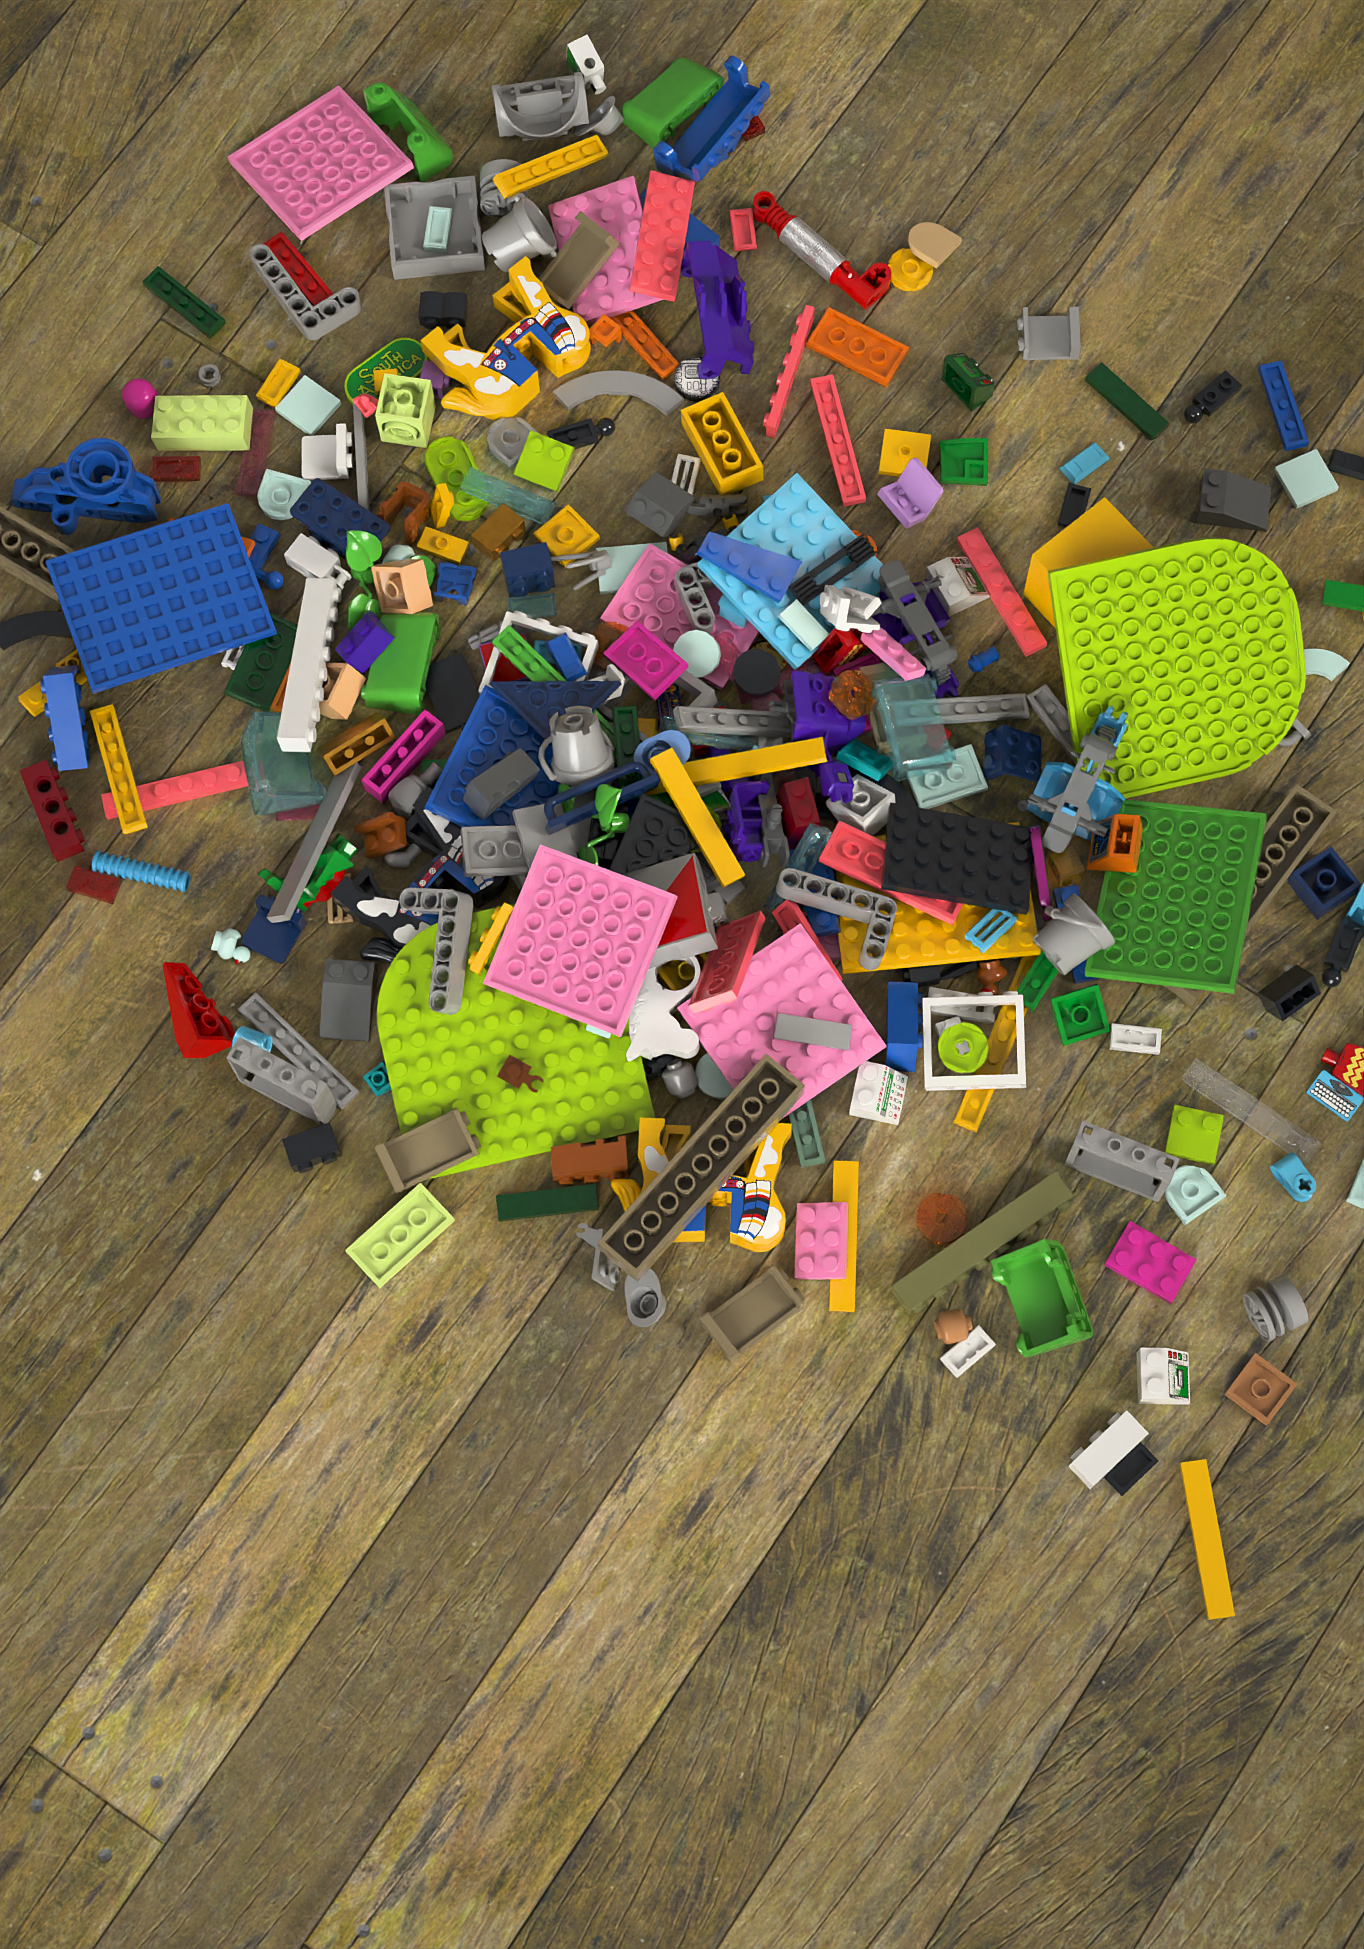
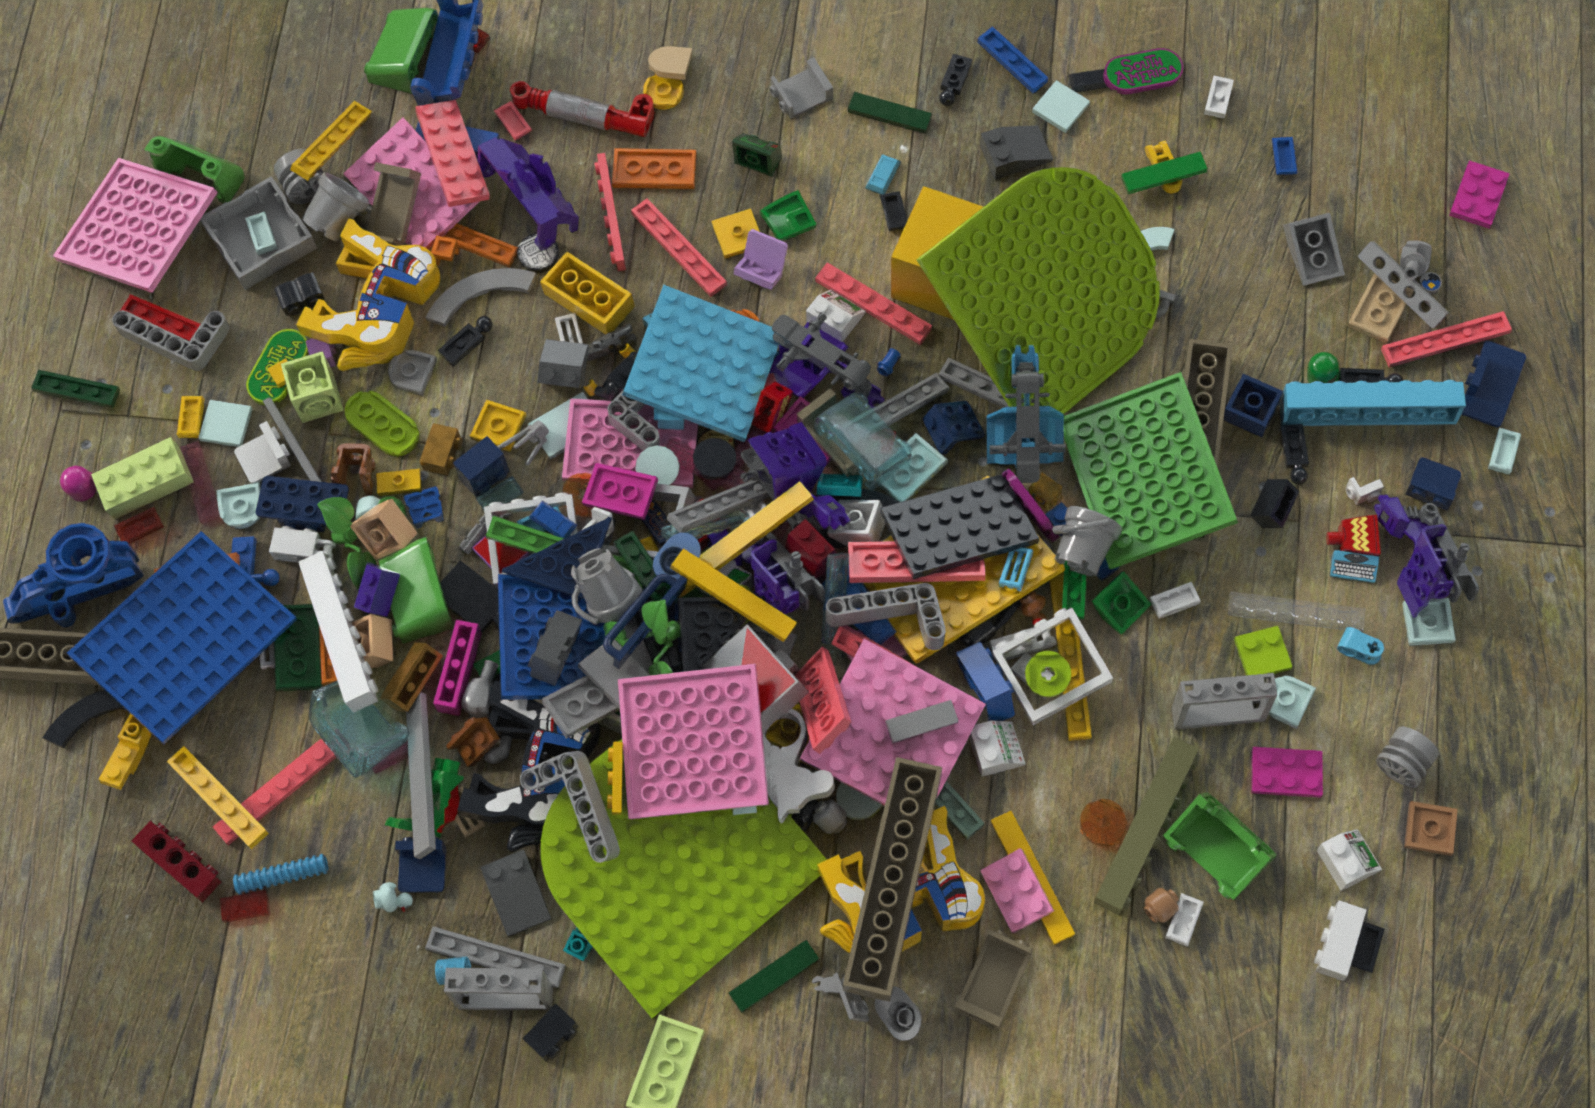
camera: 25 degrees left, 5 degrees down
(66, 718) = (150, 776): wedge -> none
(195, 1021) = (392, 975): red wedge -> none
(209, 382) = (130, 444): light grey bush -> none
(366, 403) = (276, 397): coral tile -> none
(428, 1150) = (653, 982): dark tan panel -> none
(441, 505) = (381, 449): yellow plate -> none
(499, 492) = (424, 416): clear light blue plate -> none
(516, 1073) = (693, 880): reddish brown plate -> none
(540, 107) = (297, 100): light grey piece -> none
(544, 461) = (448, 374): lime plate -> none
(584, 58) = (317, 50): white torso -> none
(590, 1161) = (793, 923): dark orange wedge -> none
(602, 120) = (352, 88): light grey piece -> none
(755, 566) = (668, 373): wing -> none
(803, 625) = (734, 402): light aqua tile -> none
(835, 609) = (755, 375): white bracket -> none
(841, 694) = (795, 441): clear orange plate -> none
(858, 552) = (746, 324): black container -> none
(861, 603) = (766, 364): white plate -> none
(893, 654) = (818, 389): bright pink plate -> none
(1120, 845) = (1080, 455): orange slope -> none
(1207, 1539) = (1458, 972): yellow tile -> none

